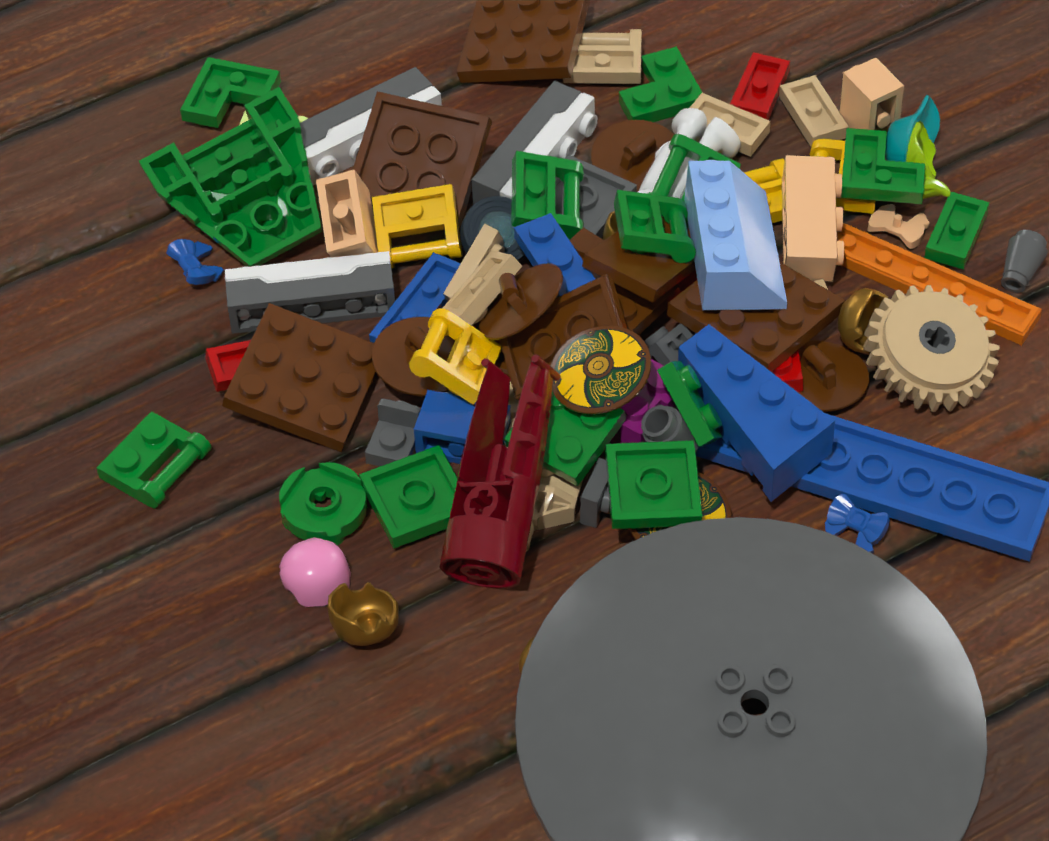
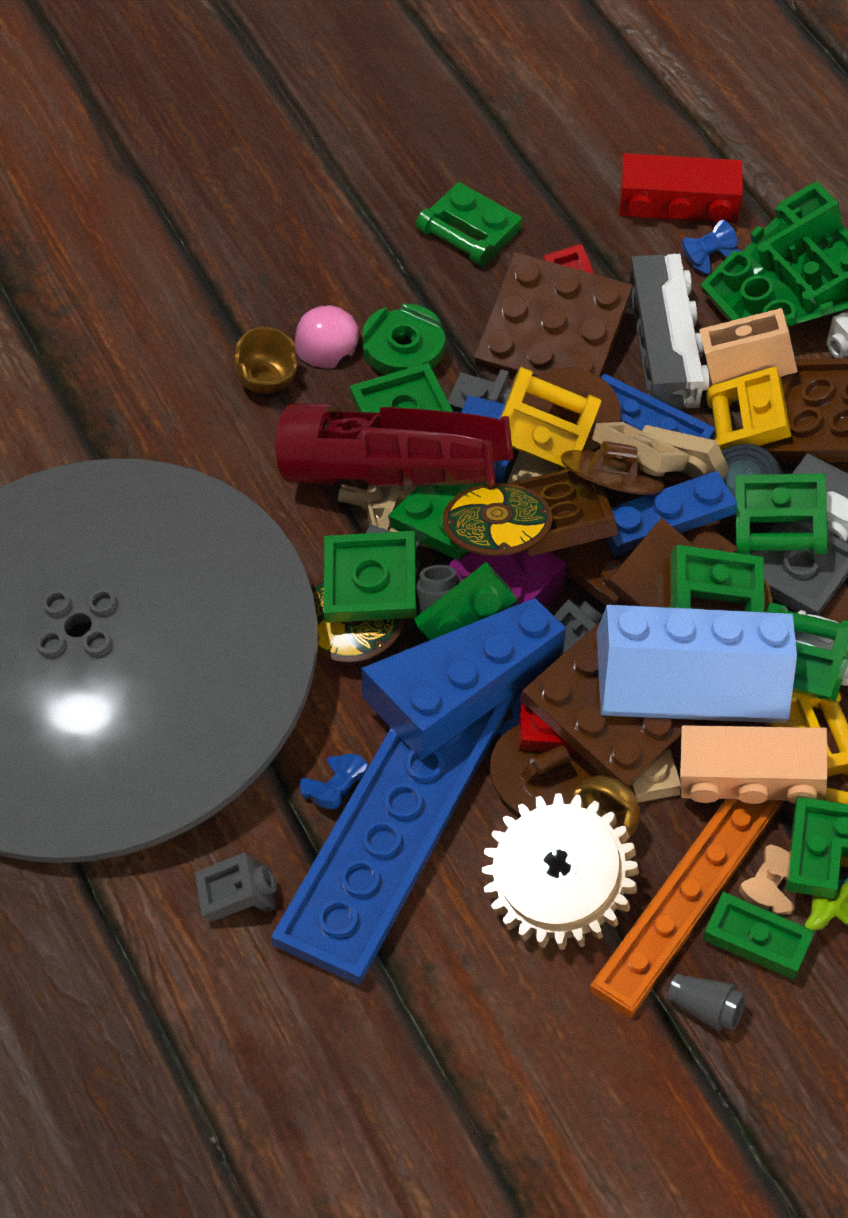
camera: 90 degrees right, 5 degrees up
(118, 283) = (680, 188): none -> red brick
(985, 587) = (234, 887): none -> dark grey bracket

